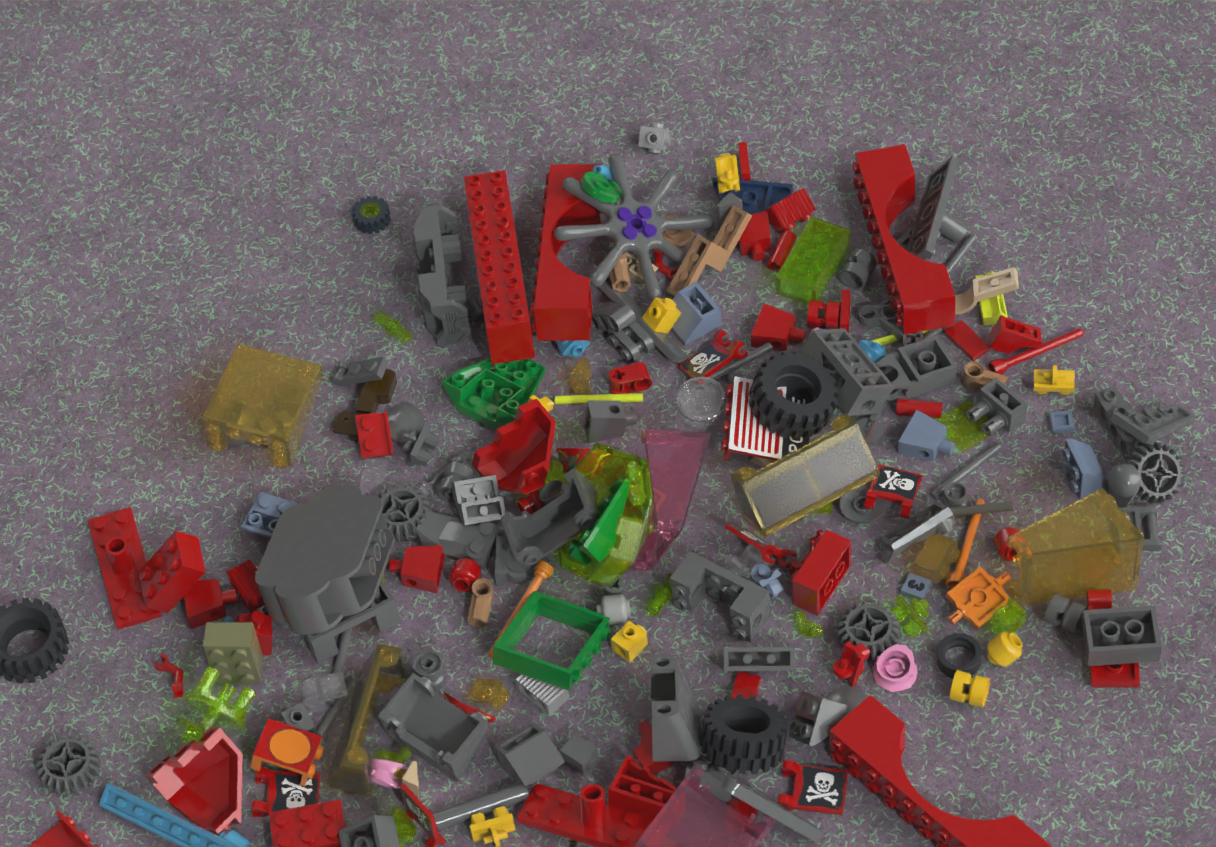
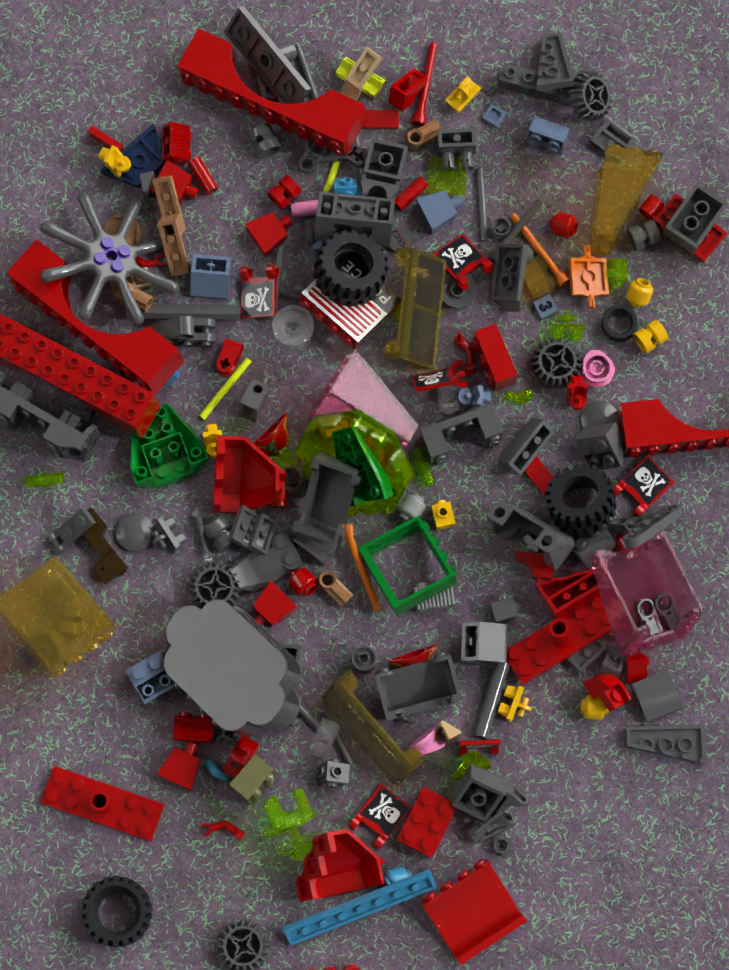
camera: 60 degrees left, 25 degrees up
(171, 571) = (149, 776): red brick -> none
(288, 749) = (355, 795): panel -> none
(374, 435) = (134, 560): red plate -> none
(400, 757) = (409, 729): clear neon green arm -> none
(489, 692) = (409, 633): clear yellow bracket -> none
(581, 377) = (198, 385): clear yellow bracket -> none
(599, 188) = (66, 257): green tile -> none
(605, 170) = (50, 243): dark azure arm -> none
(648, 140) = (29, 181): light grey brick -> none
(661, 315) = (196, 296): yellow brick -> none
(813, 261) = (235, 163): clear neon green brick -> none
(845, 309) = (284, 170): red tile -> none
(1123, 483) = (582, 122): dark grey cap -> none

